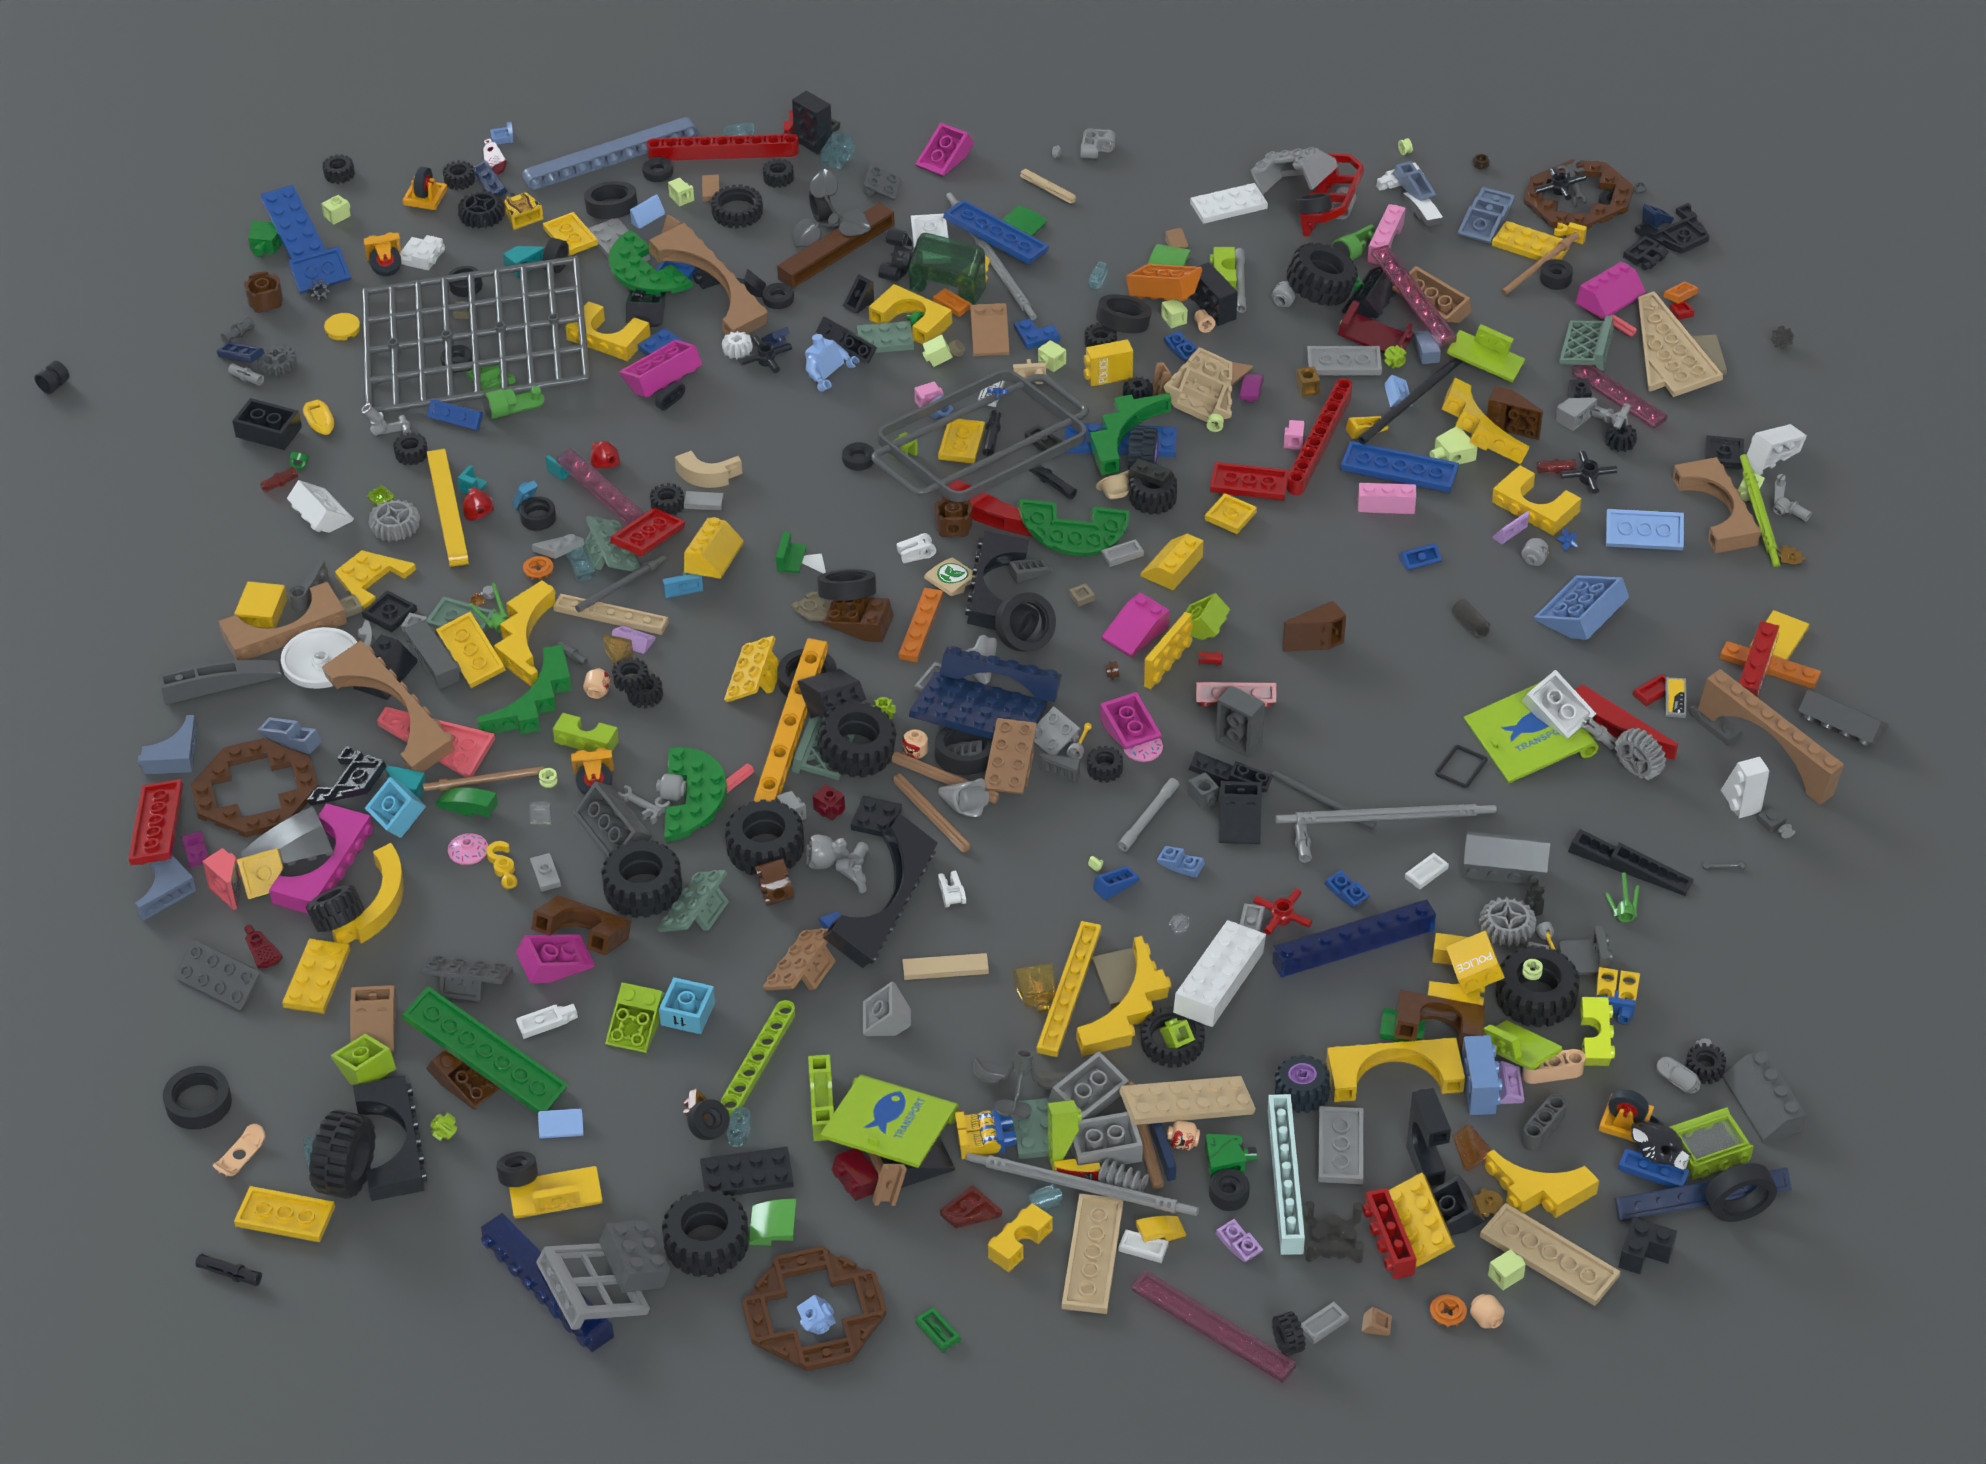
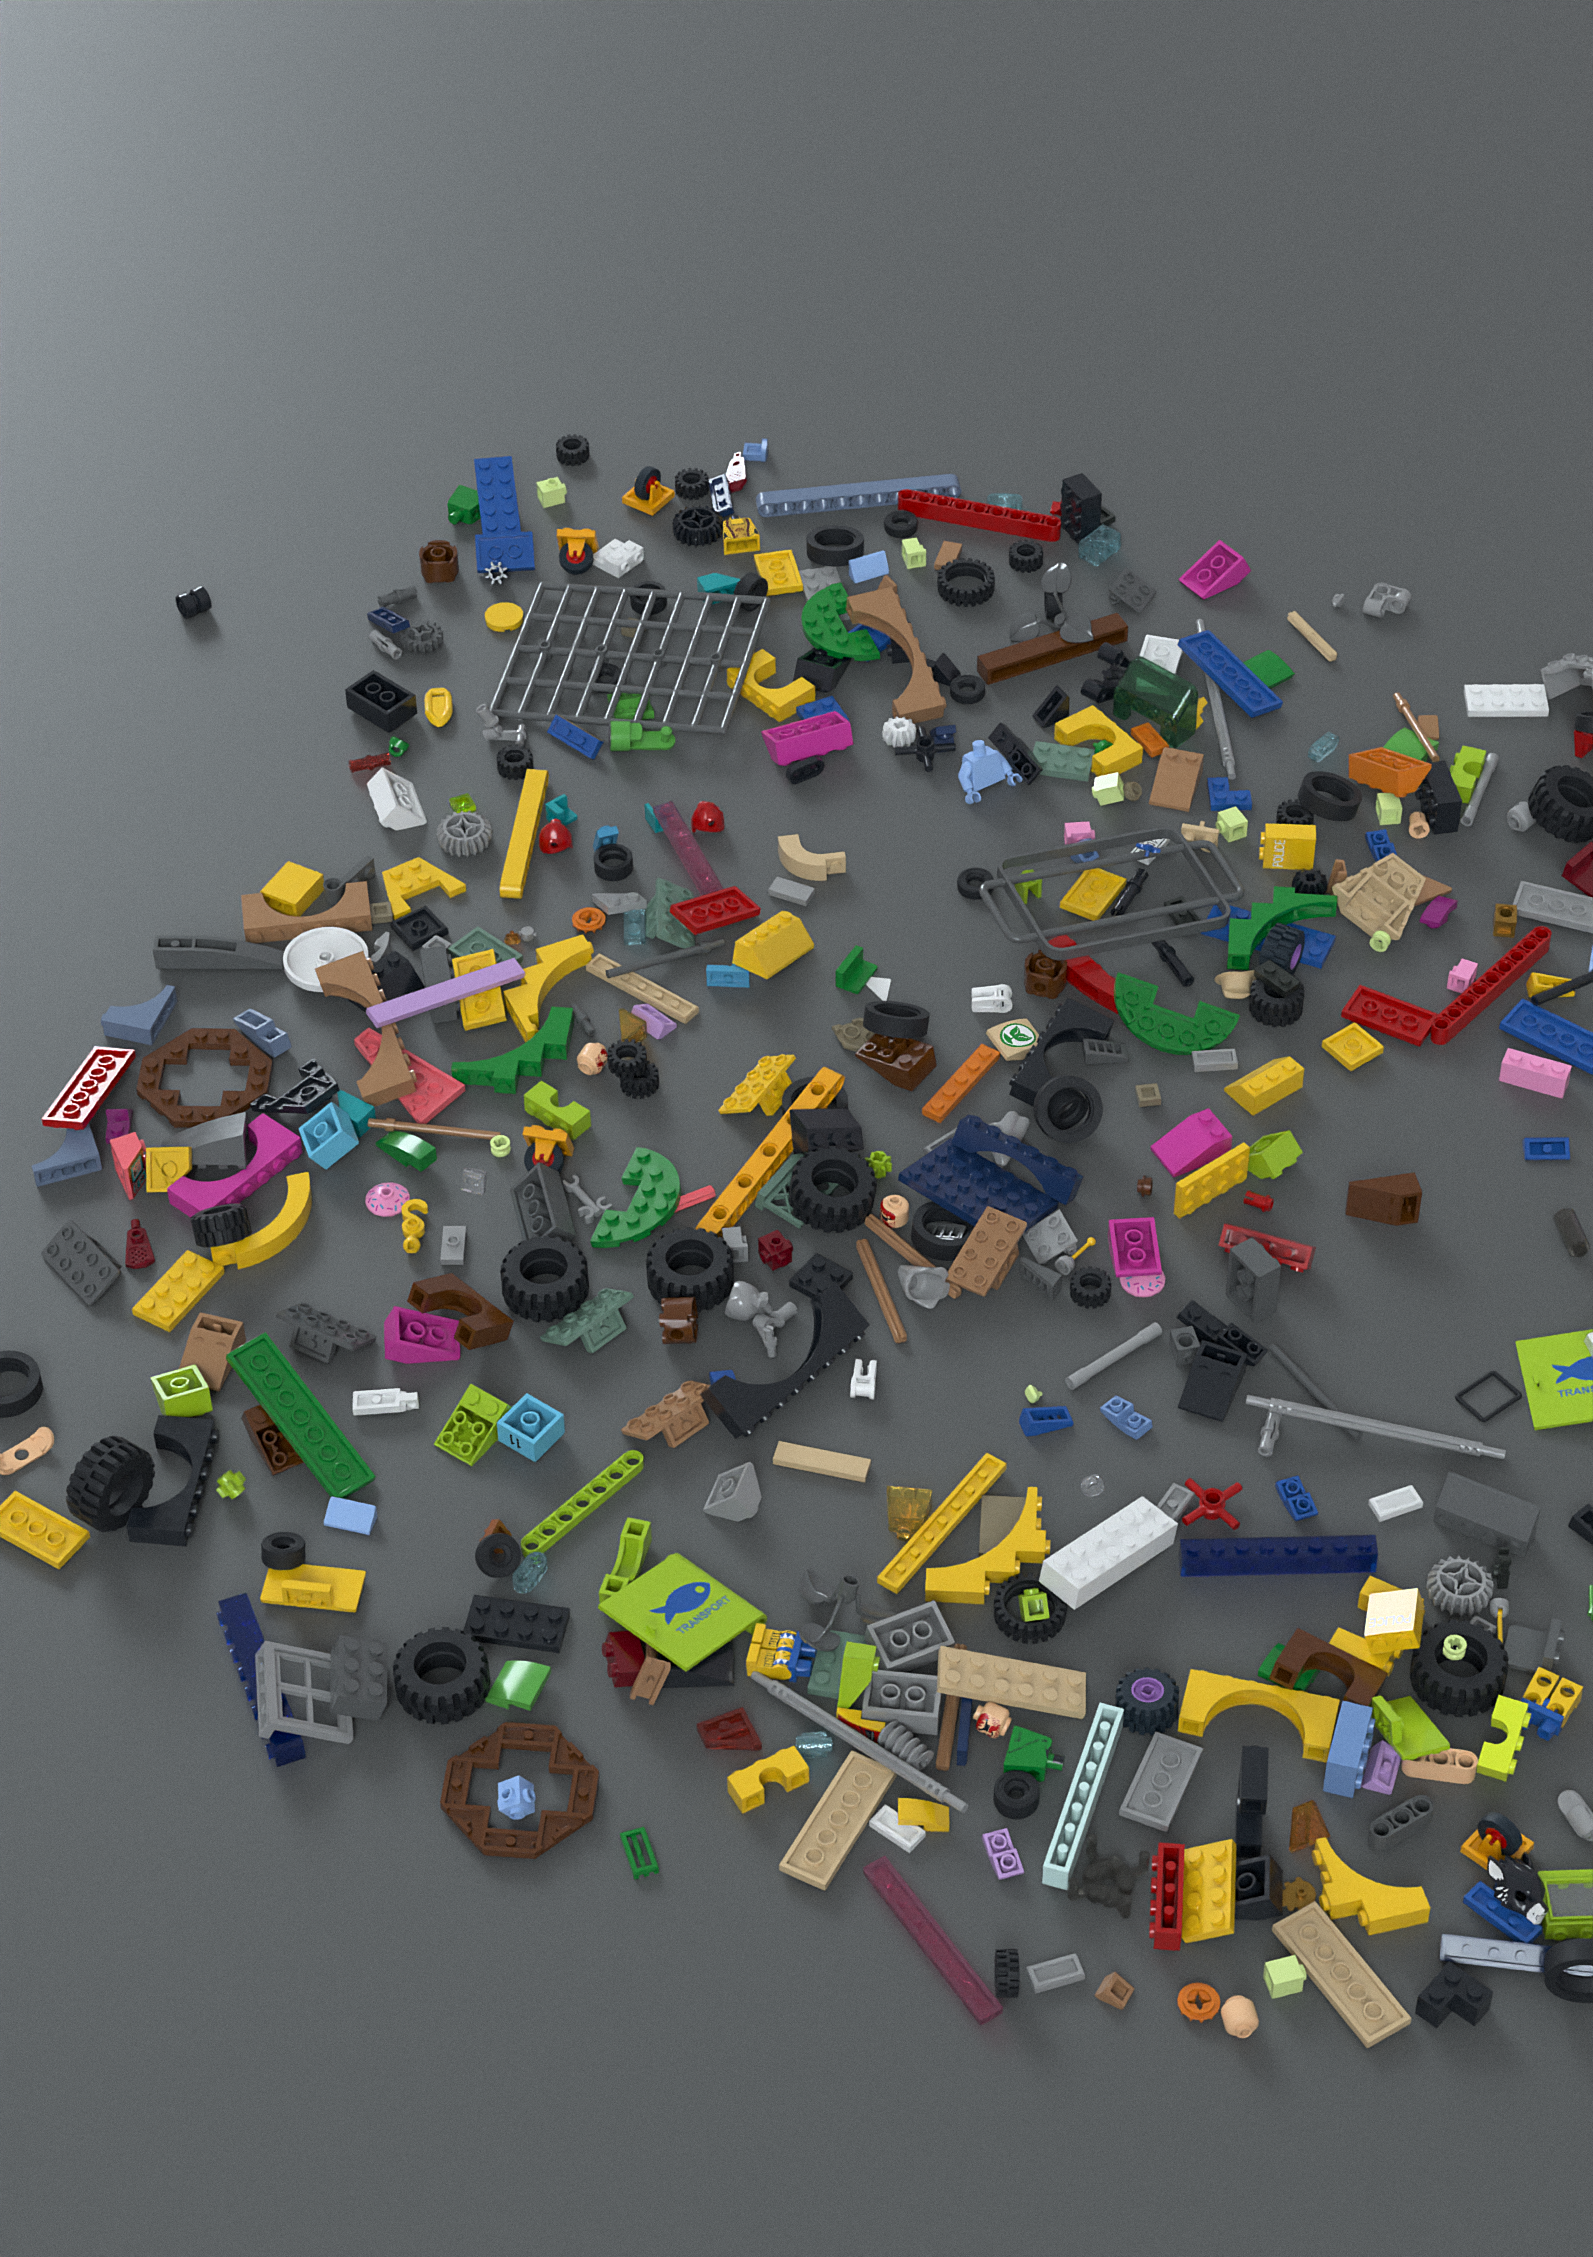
camera: 20 degrees right, 0 degrees up
(447, 659) = (445, 993): none -> lavender tile
(496, 618) = (523, 961): bright green plant -> none
(667, 492) = (753, 872): black tyre -> none
(671, 787) = (620, 1189): light grey head -> none
(1150, 228) = (1404, 707): none -> medium nougat bar

